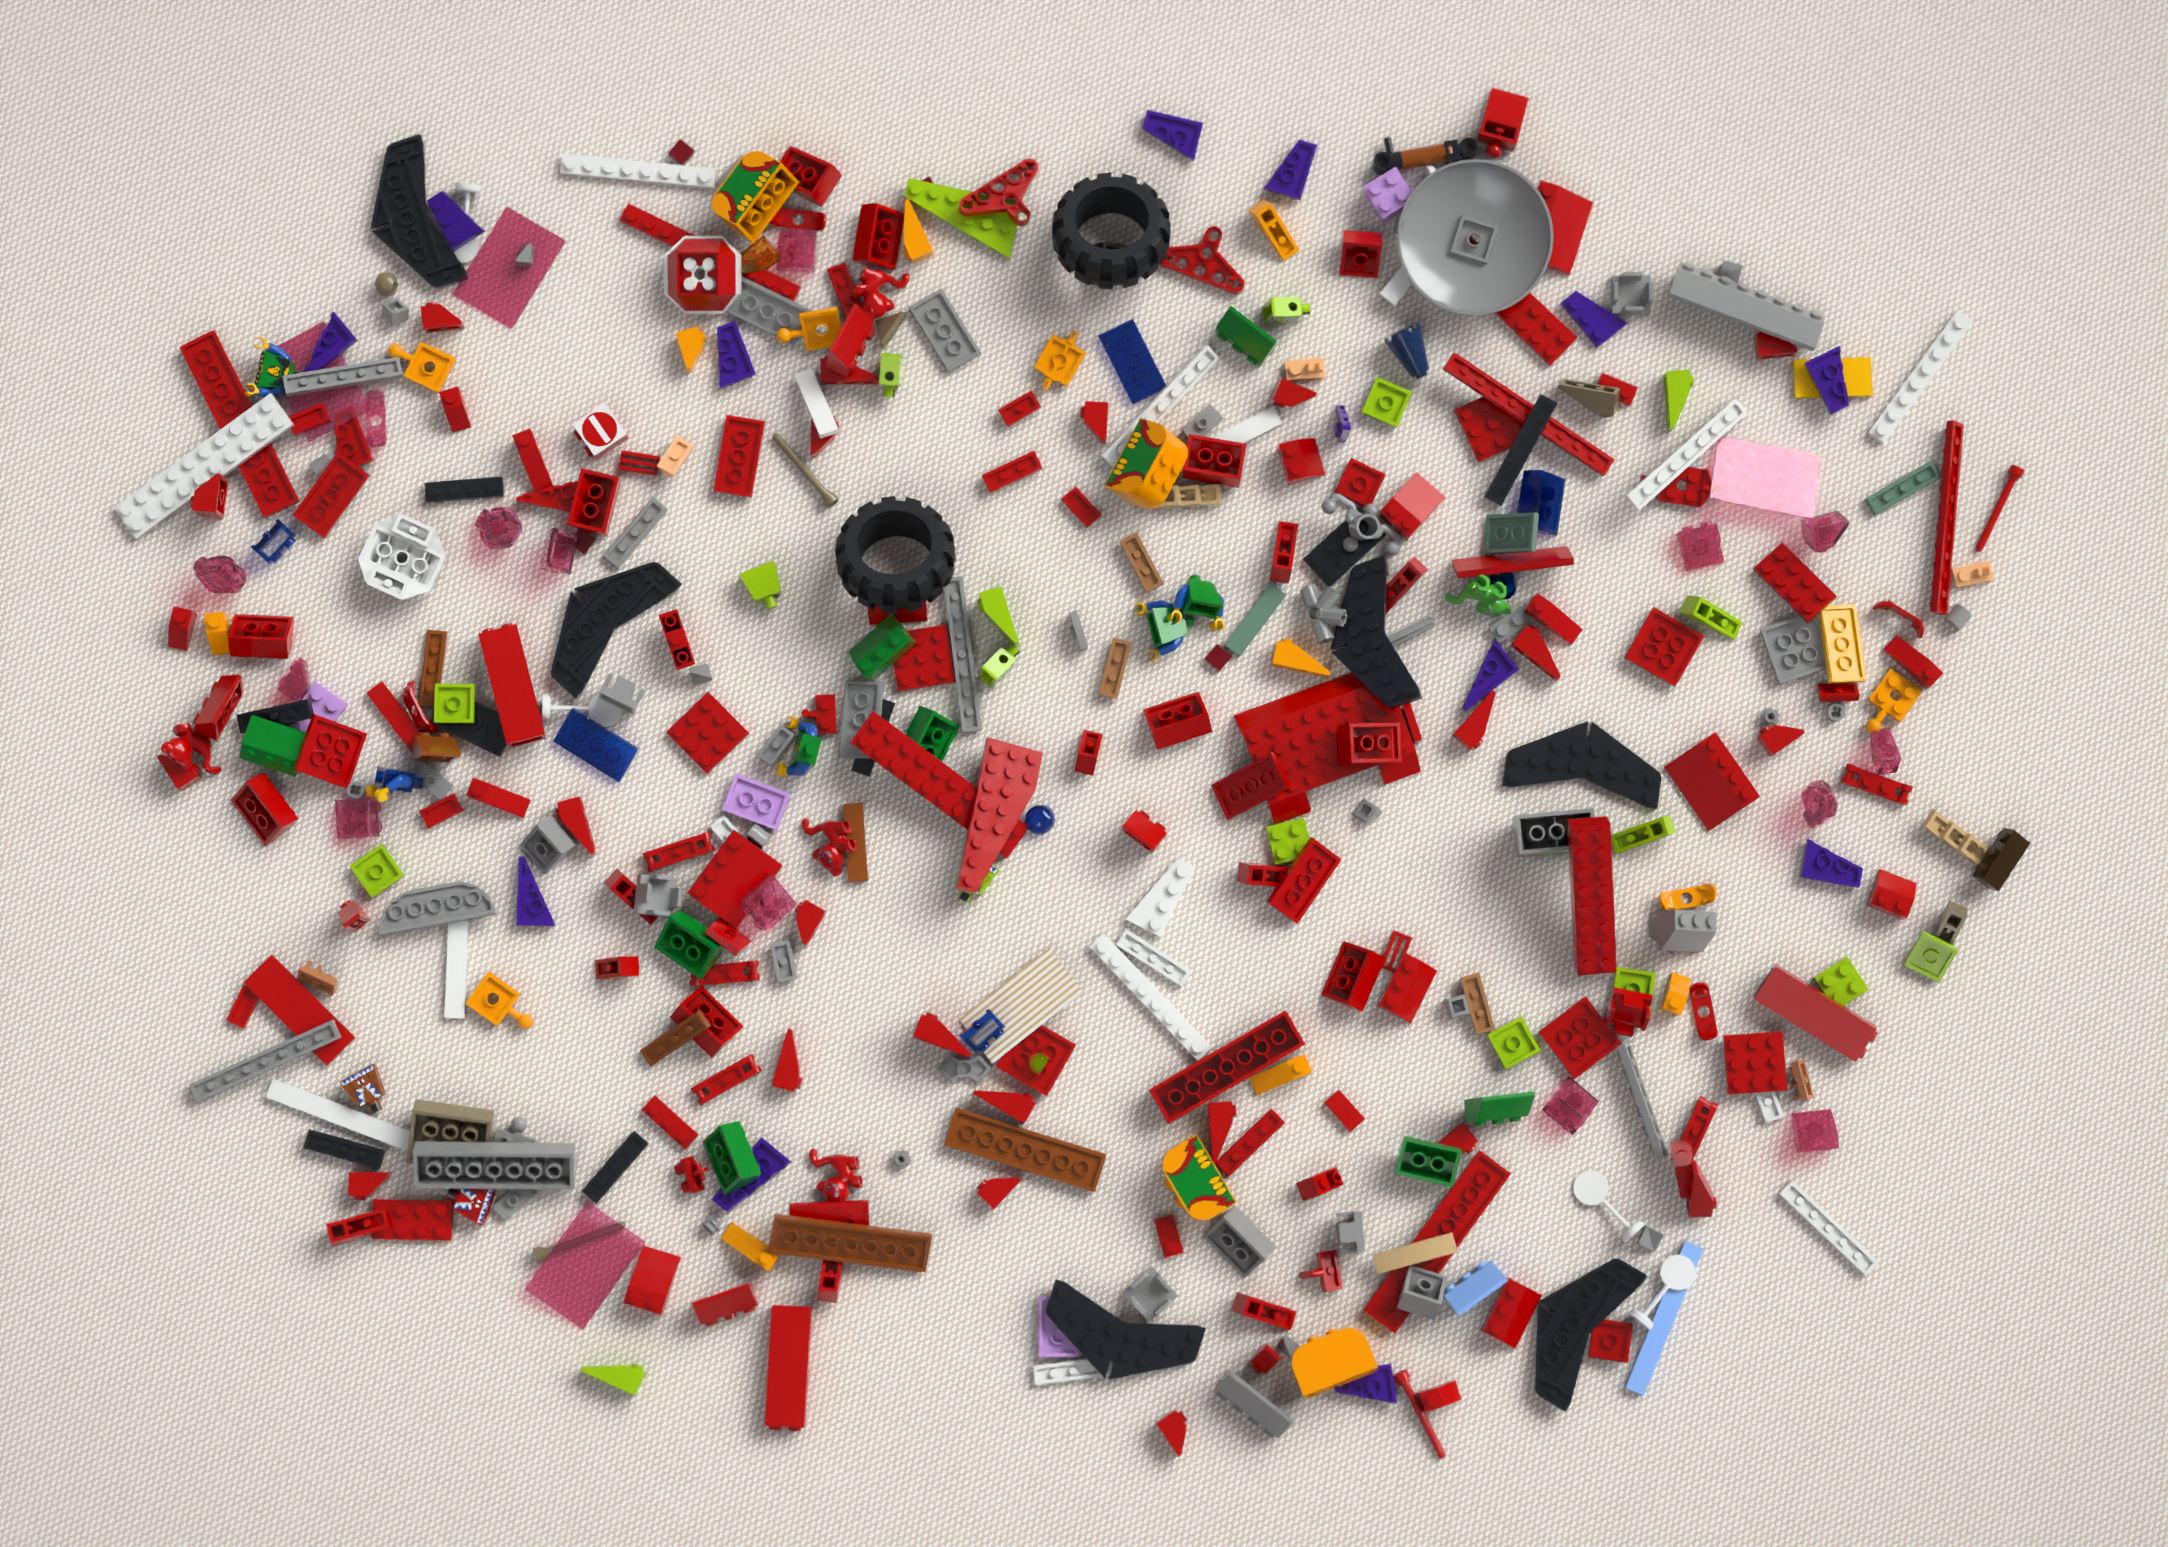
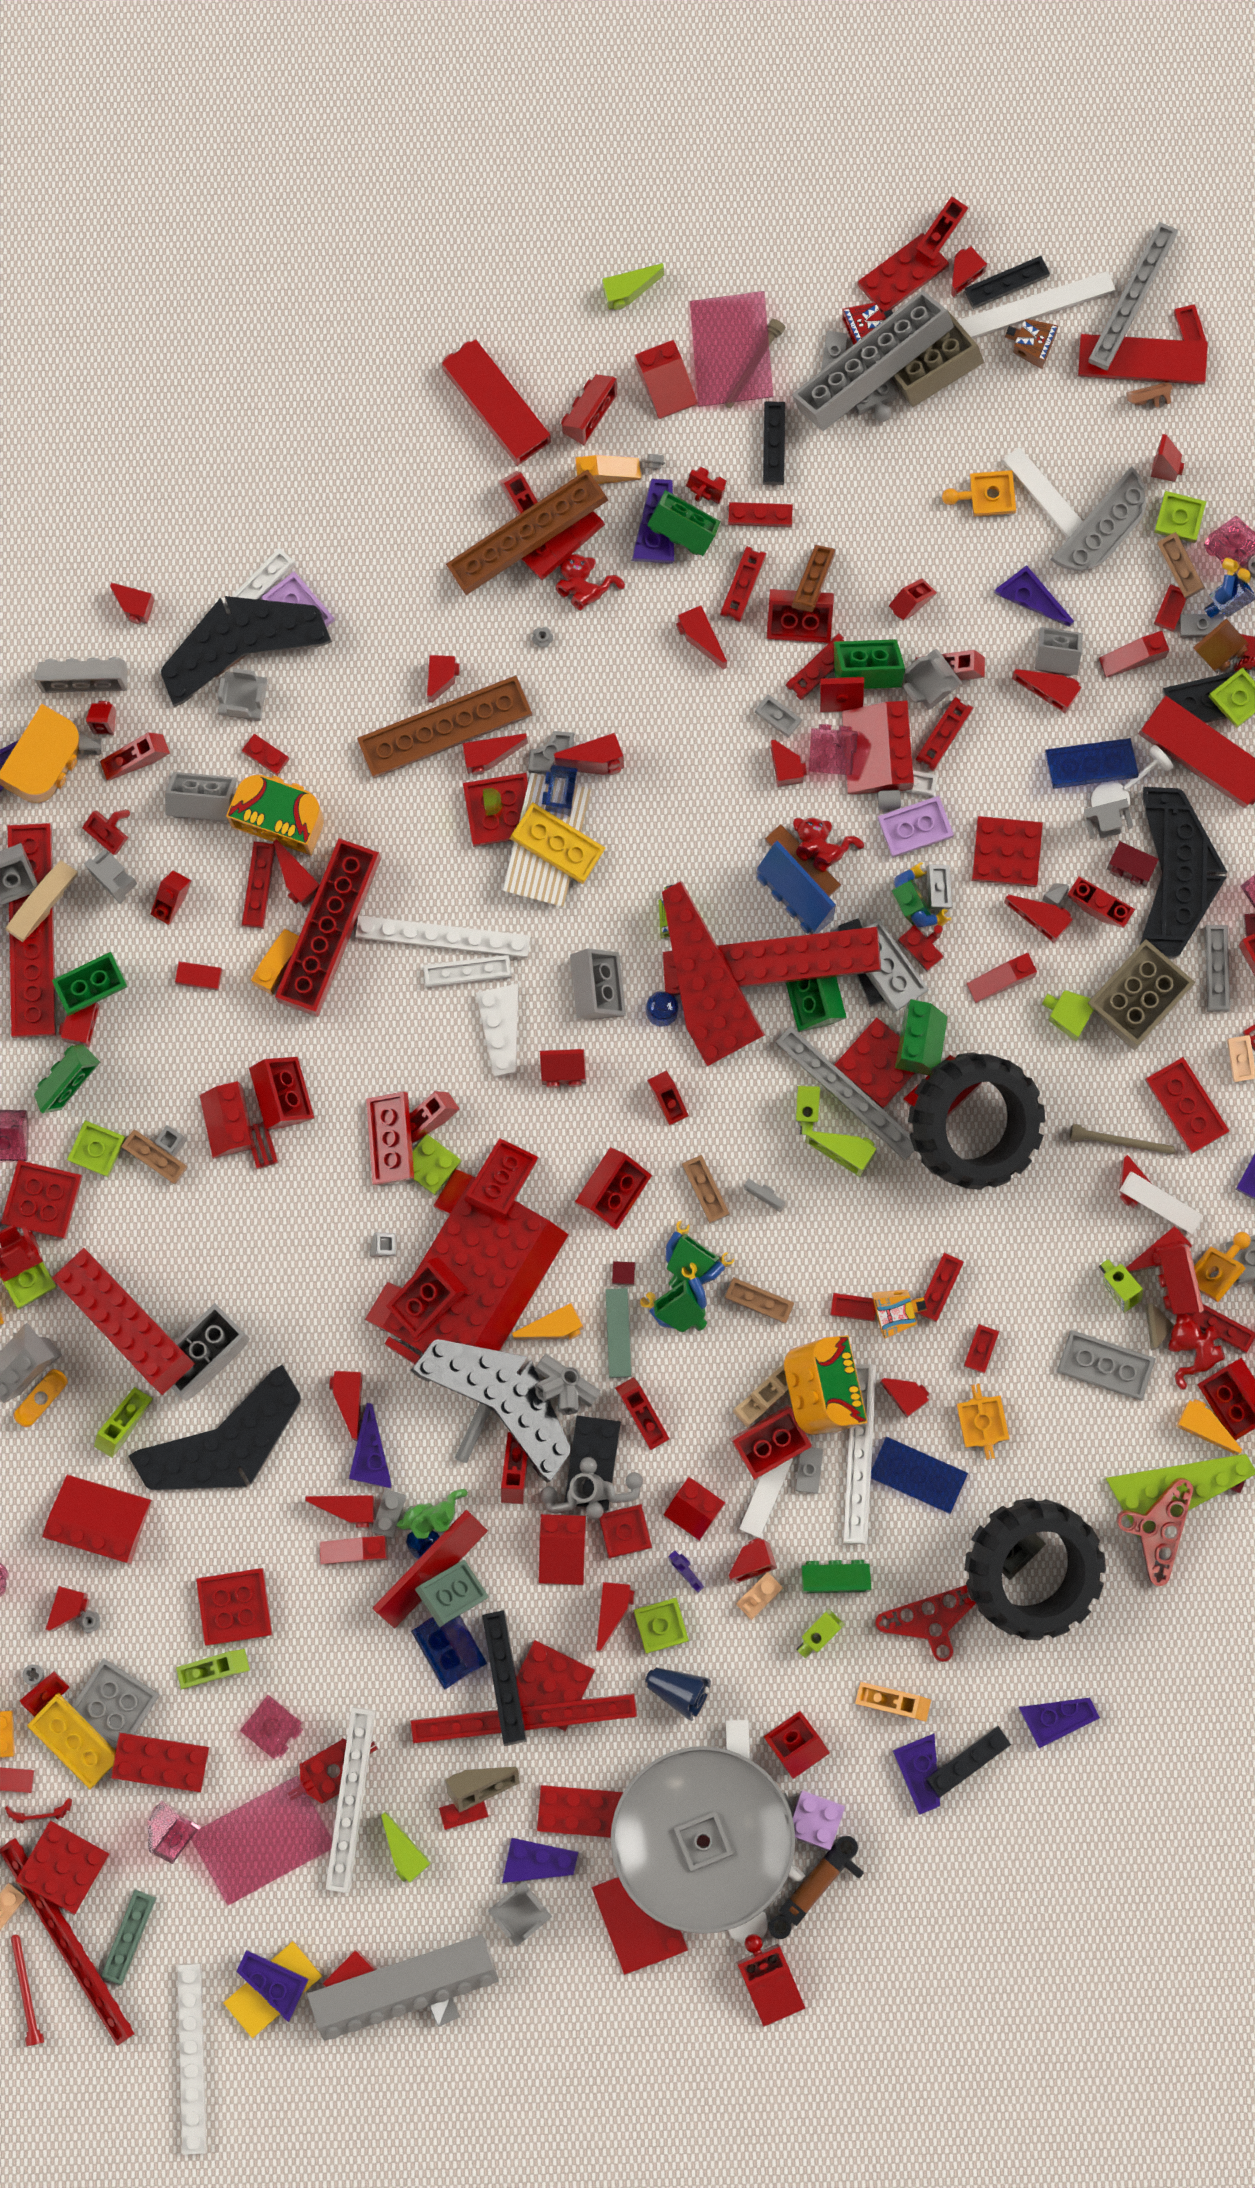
camera: 150 degrees right, 5 degrees down
(409, 833) = (1181, 565): none -> medium nougat plate
(630, 650) = (1132, 864): none -> dark red brick
(705, 553) = (1141, 994): none -> dark tan slope
(722, 661) = (1044, 917): none -> red slope
(788, 646) = (1002, 978): none -> red slope
(880, 821) = (796, 890): none -> blue slope
(1016, 996) = (557, 843): none -> yellow tile
(1056, 478) = (896, 1310): none -> torso
(1071, 871) = (597, 984): none -> light grey slope
(1257, 152) = (968, 1761): none -> black plate
(1411, 435) = (613, 1608): none -> red slope
(1913, 566) = (62, 1867): none -> red plate

